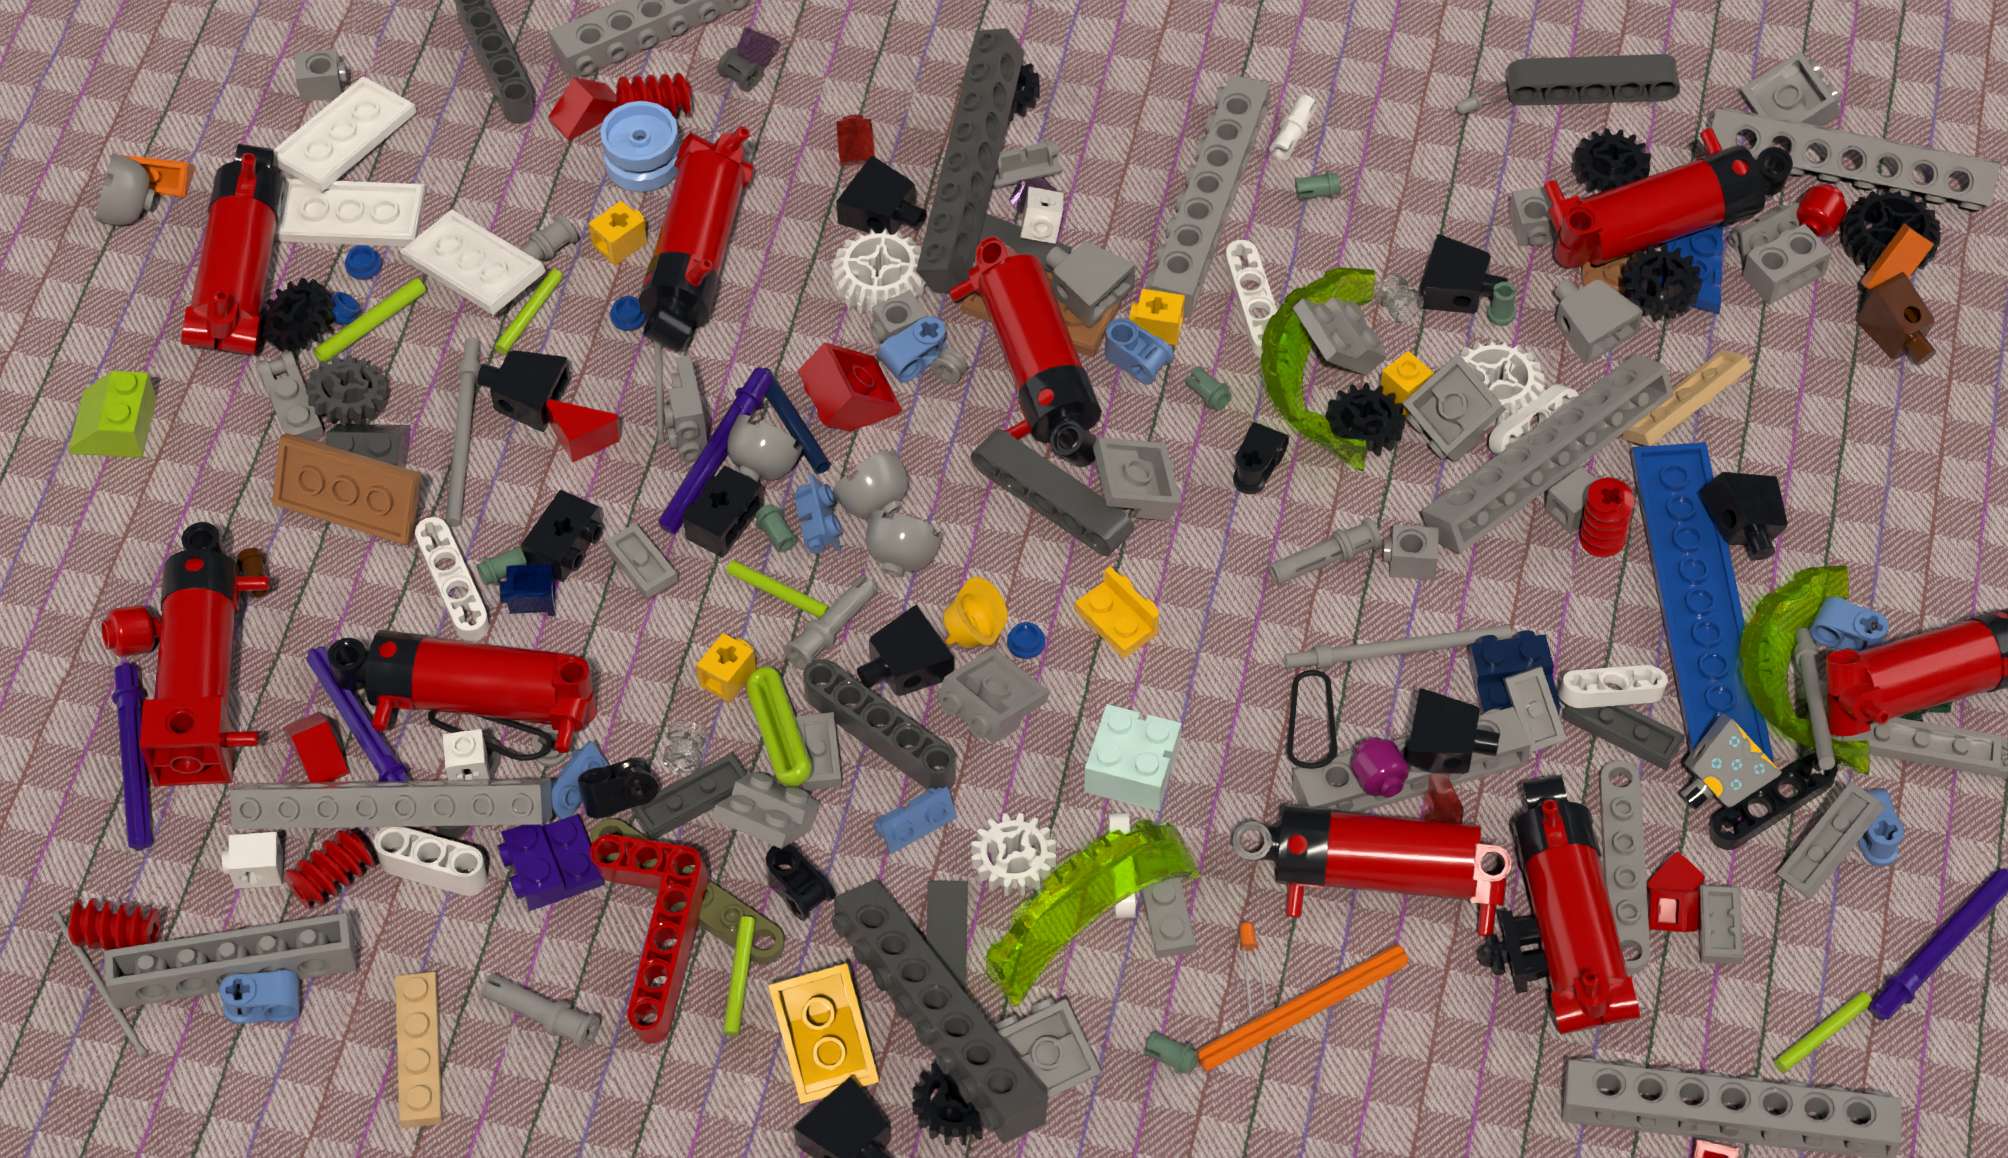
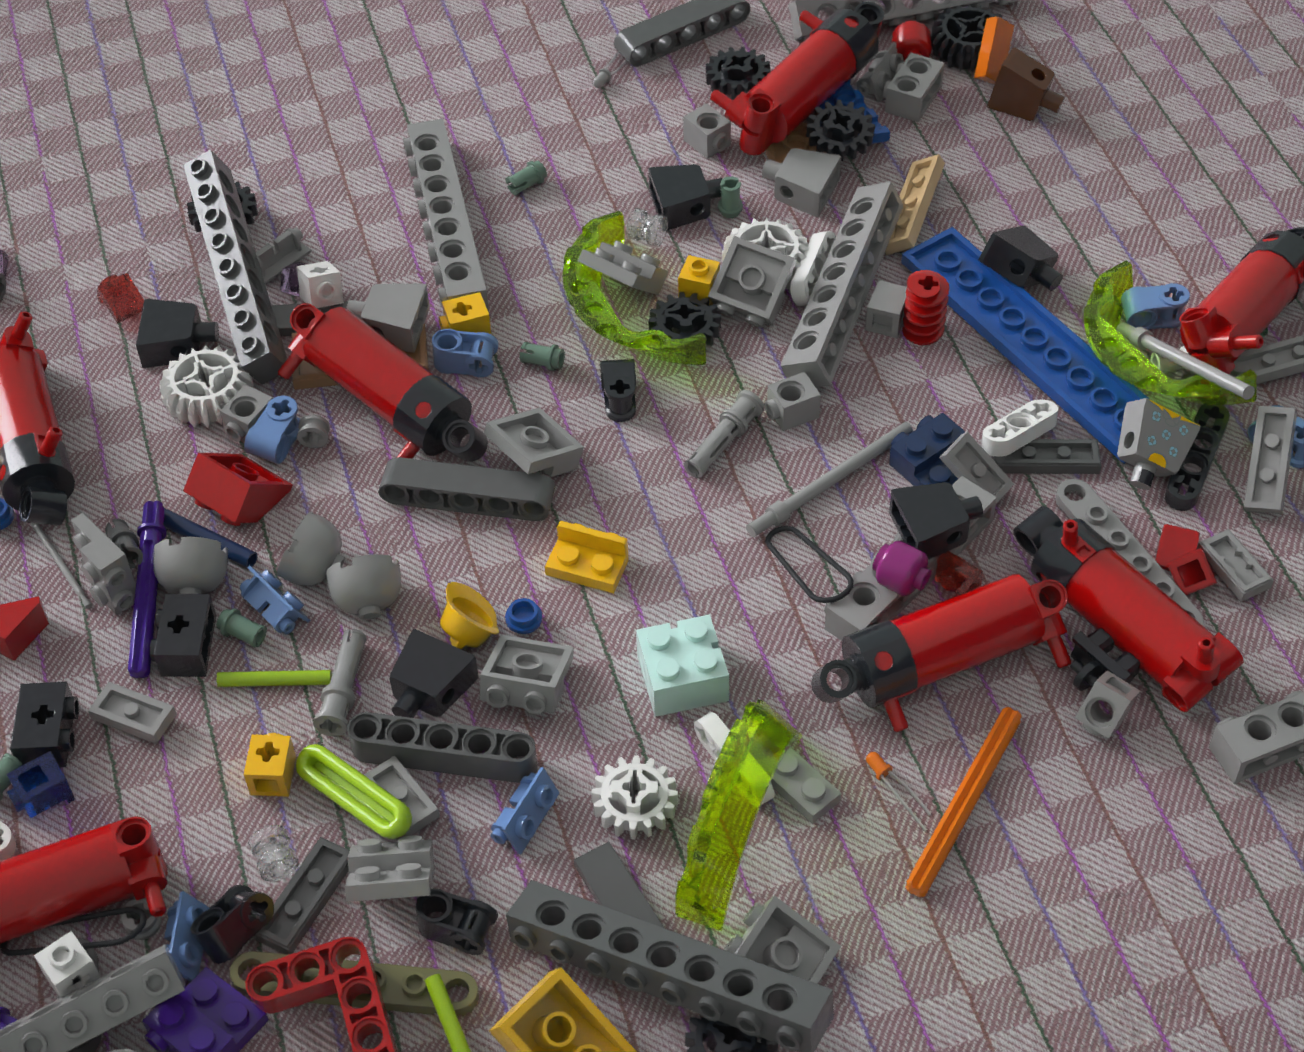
camera: 30 degrees left, 5 degrees down
(718, 397) = (125, 540): none -> dark grey pin
(1172, 1053) = (887, 896): sand green pin -> none
(1250, 299) = (529, 279): white beam -> none
(1293, 127) = (478, 146): white pin -> none
(1487, 989) = (1115, 692): none -> light grey brick

